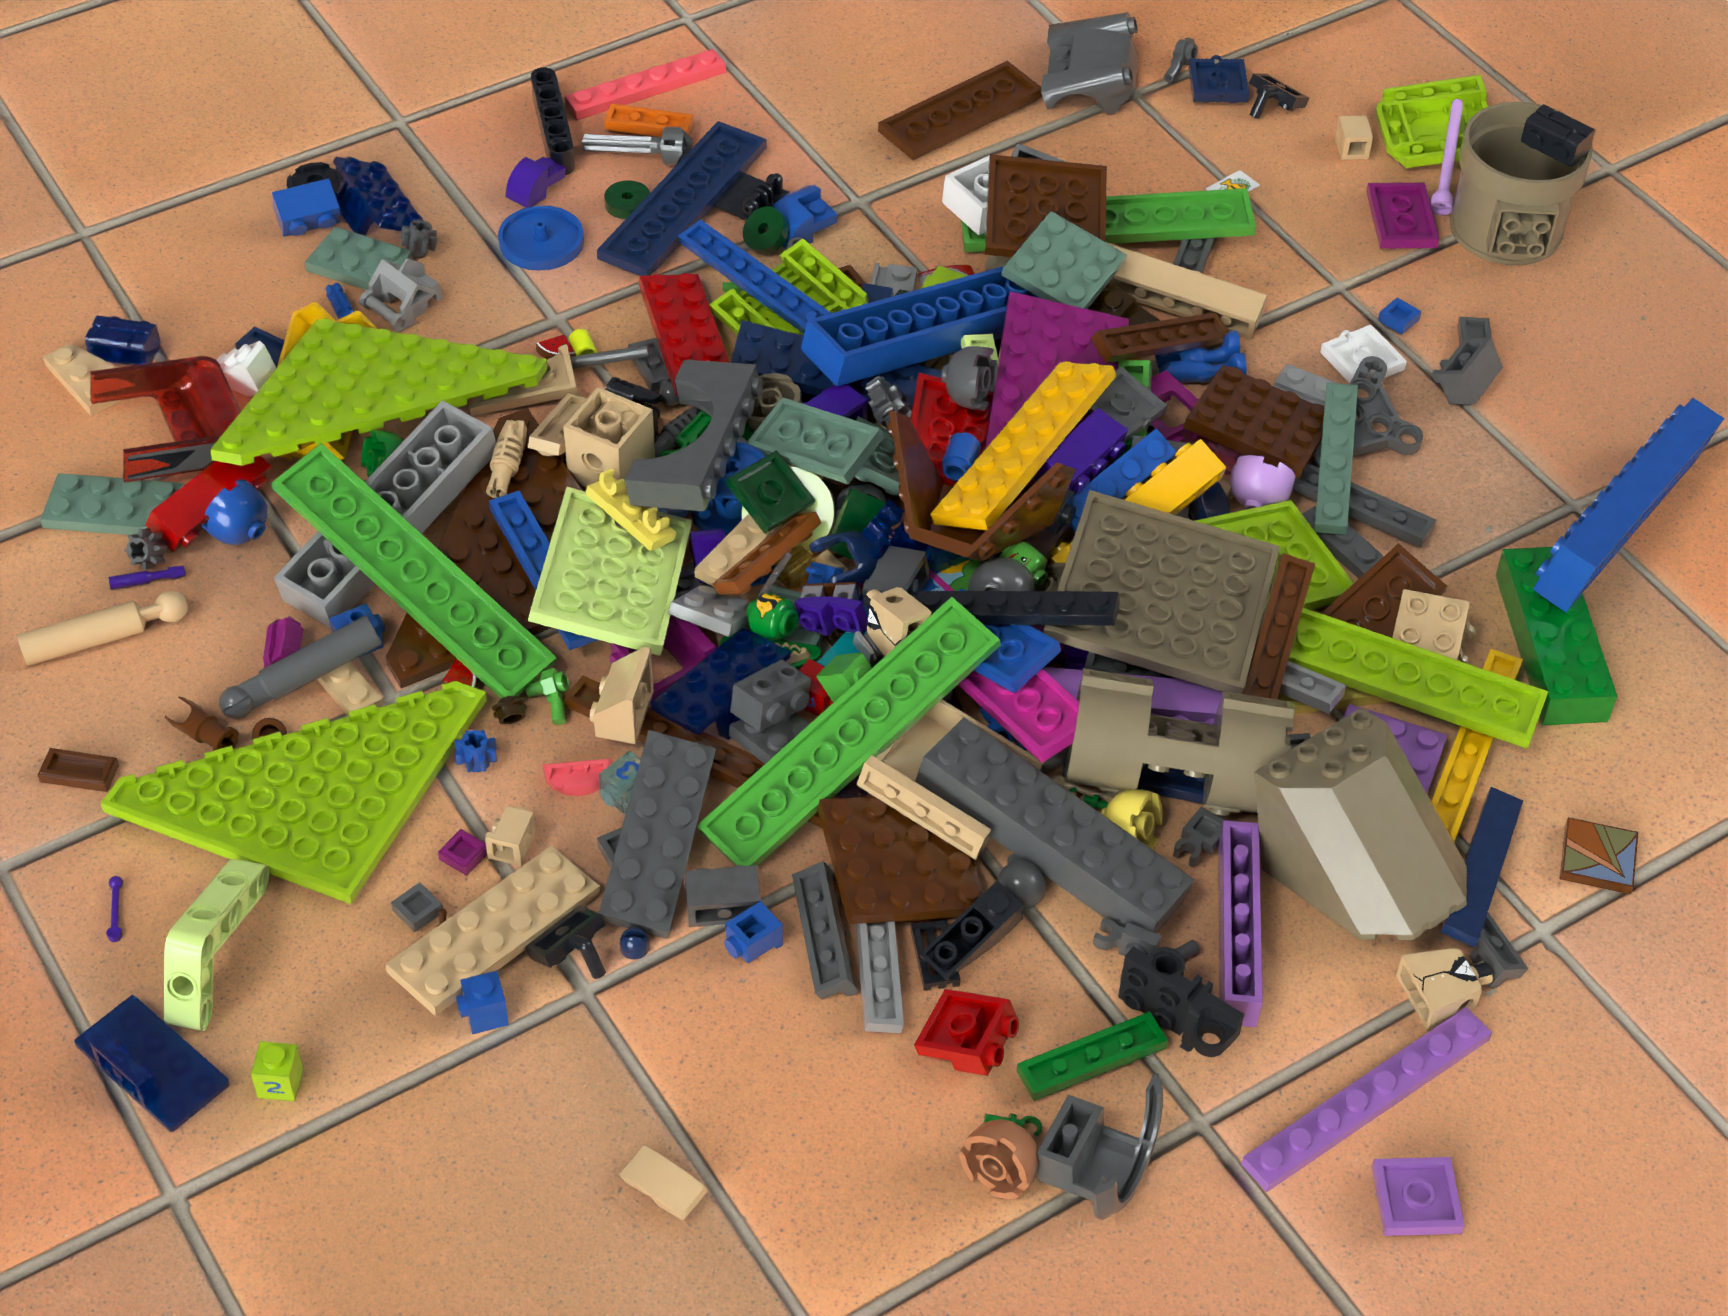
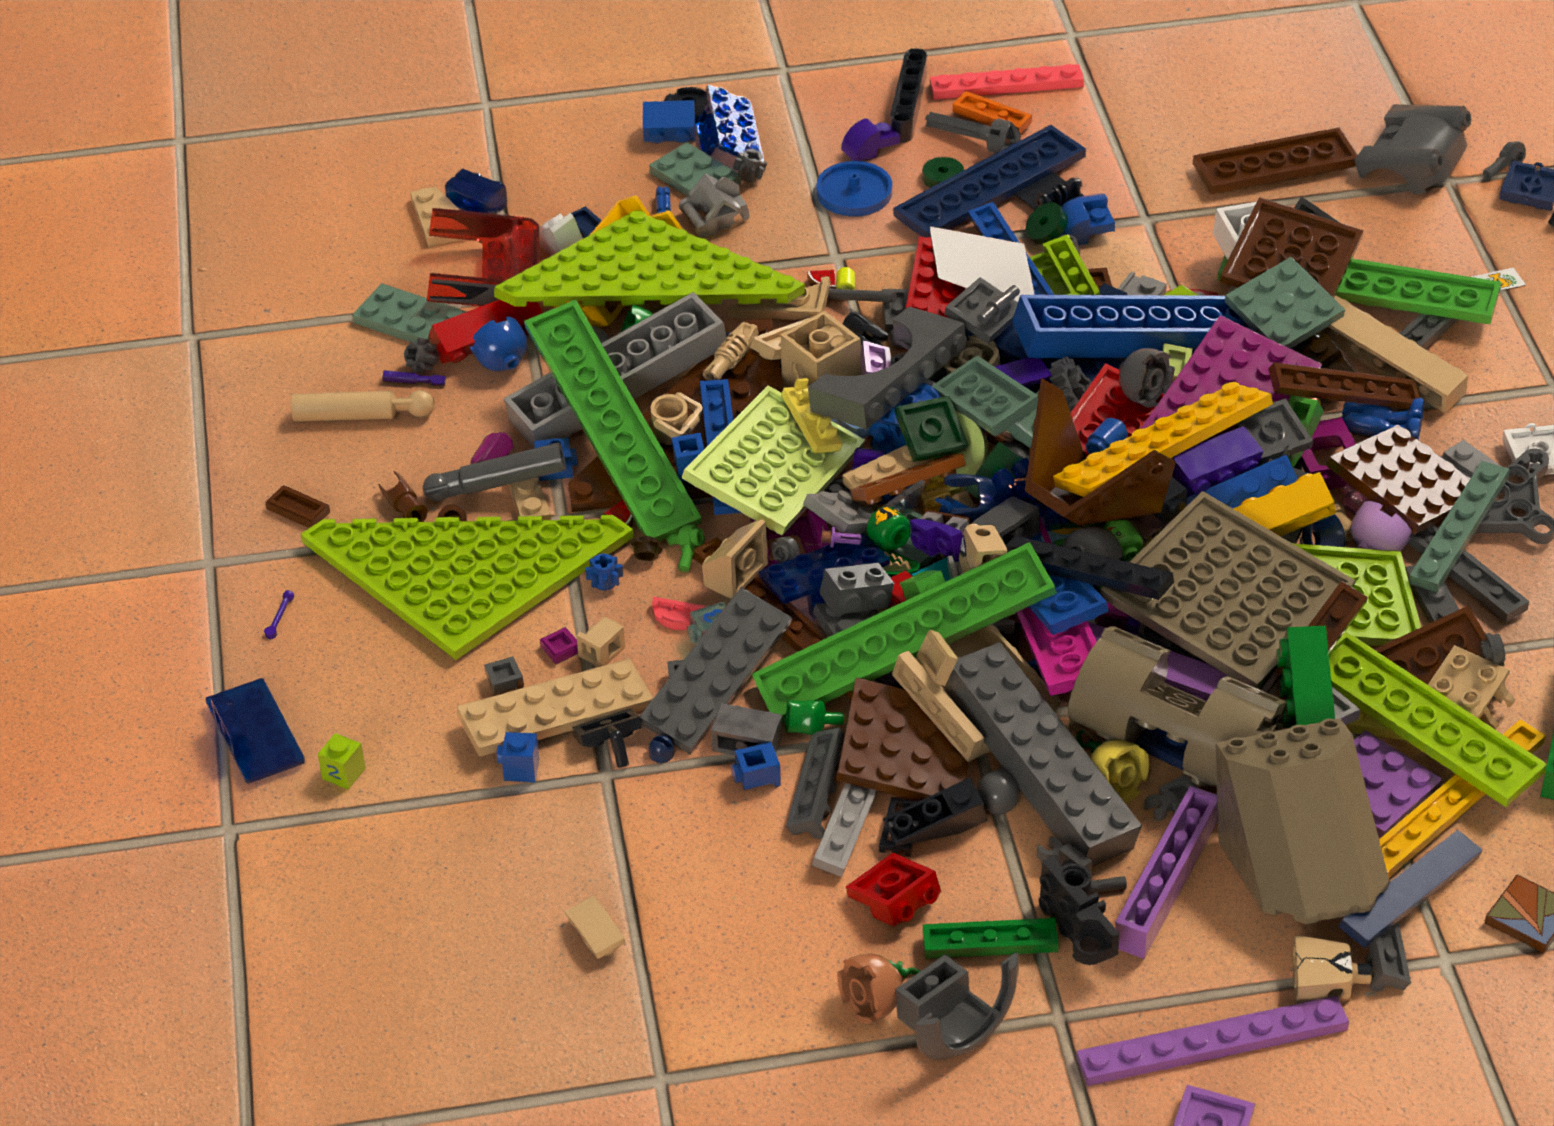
camera: 25 degrees right, 5 degrees down
(200, 935) = (327, 639): yellowish green beam -> none
(476, 550) = (671, 417): none -> tan piece
(516, 590) = (685, 450): none -> blue brick
(669, 431) = (874, 357): none -> lavender plate
(670, 665) = (784, 549): none -> dark grey plate
(719, 643) = (835, 537): none -> medium lavender piece
(730, 293) = (966, 257): none -> white sticker
(768, 343) = (984, 309): none -> dark grey plate
(782, 857) = (809, 717): none -> green piece
(907, 754) = (937, 657): none -> tan tile
(1299, 672) = (1305, 676): none -> green brick
(1447, 582) = (1493, 648): none -> dark grey plate

